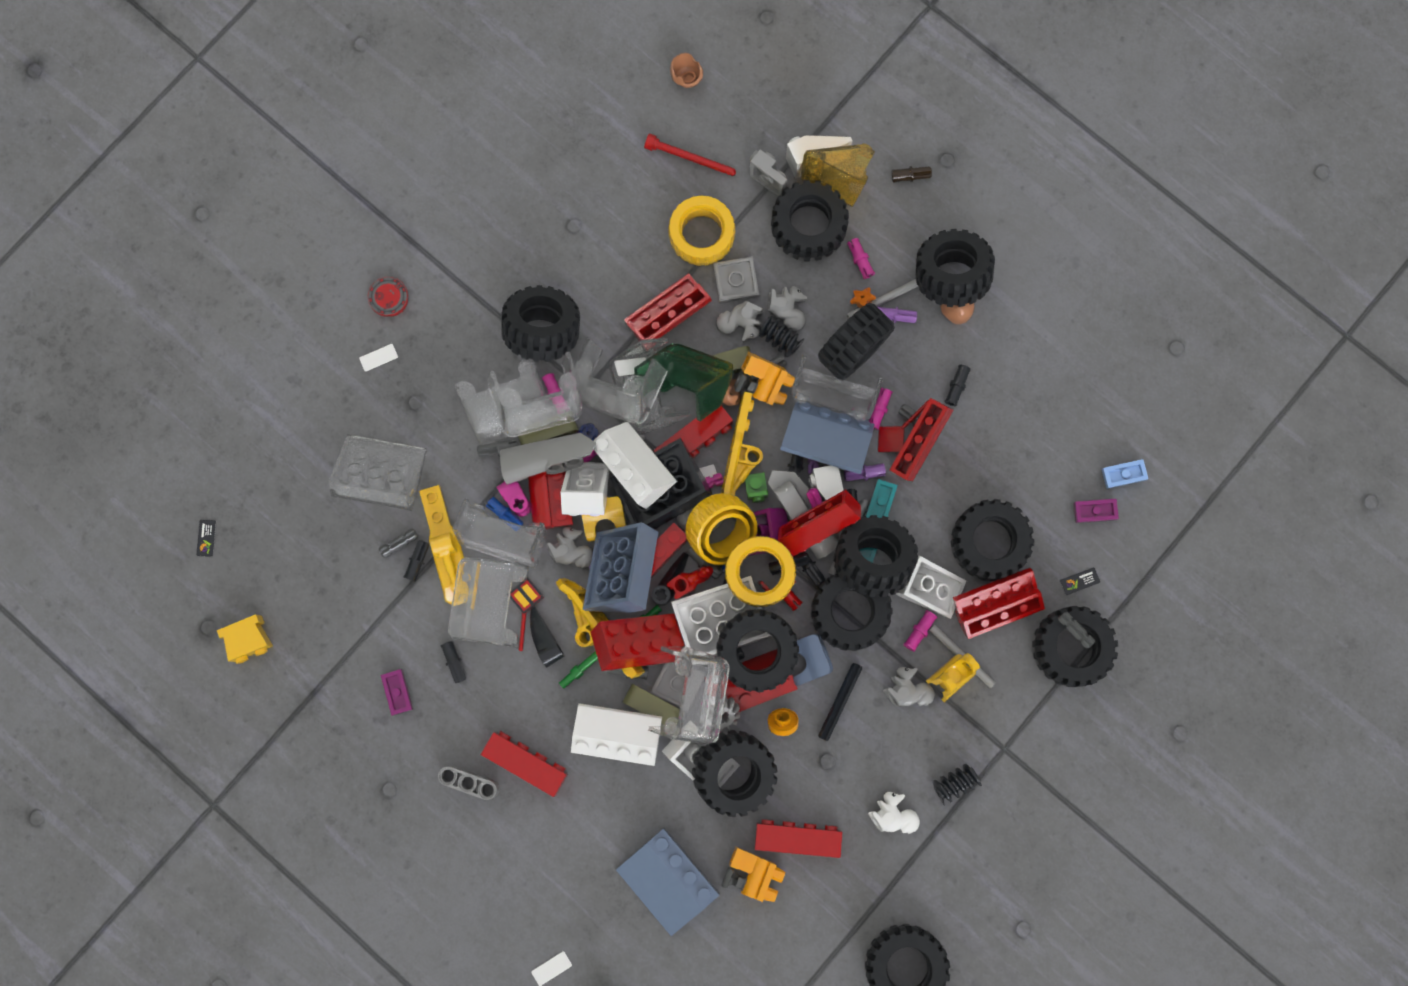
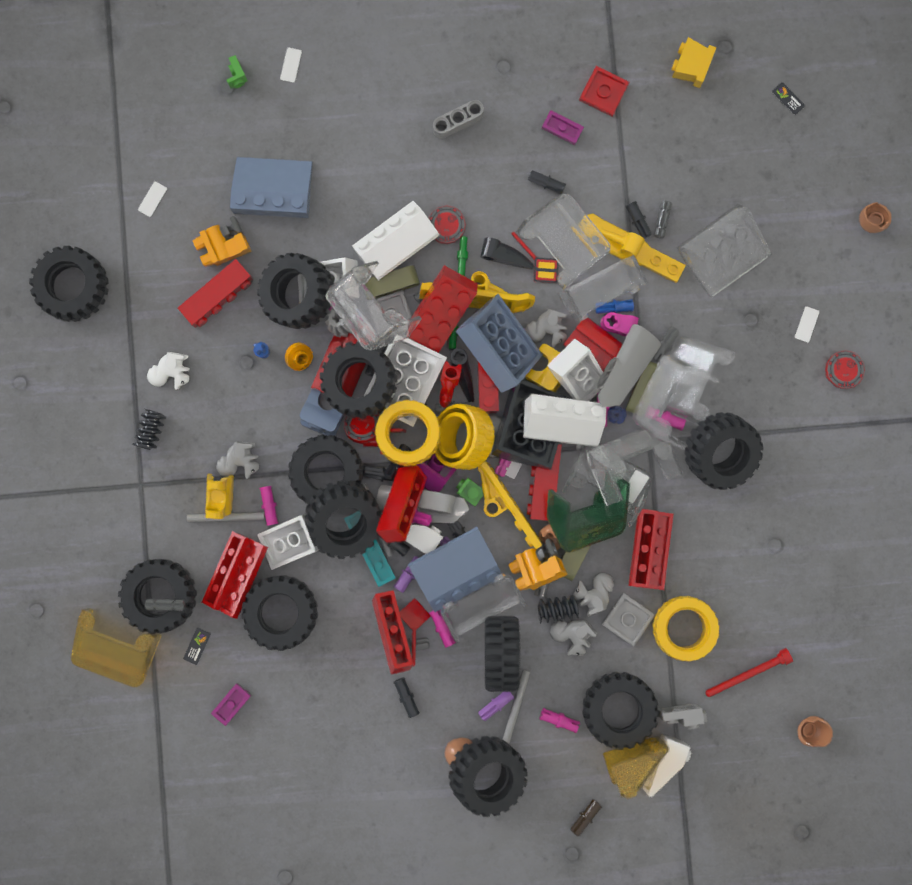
camera: 125 degrees right, 5 degrees up
(244, 381) = (875, 218): none -> nougat hair
(334, 688) = (604, 91): none -> red tile
(524, 764) = (435, 165): red brick -> none
(561, 708) = (448, 223): none -> tile
(771, 972) = (152, 199): none -> white sticker
(792, 612) = (361, 429): none -> tile
(807, 756) = (261, 350): none -> blue axle
(840, 702) = (275, 407): black axle -> none
(862, 297) = (525, 693): orange plate -> none
(1124, 474) = (236, 749): light blue plate -> none
(1156, 638) = (111, 656): none -> clear yellow windscreen

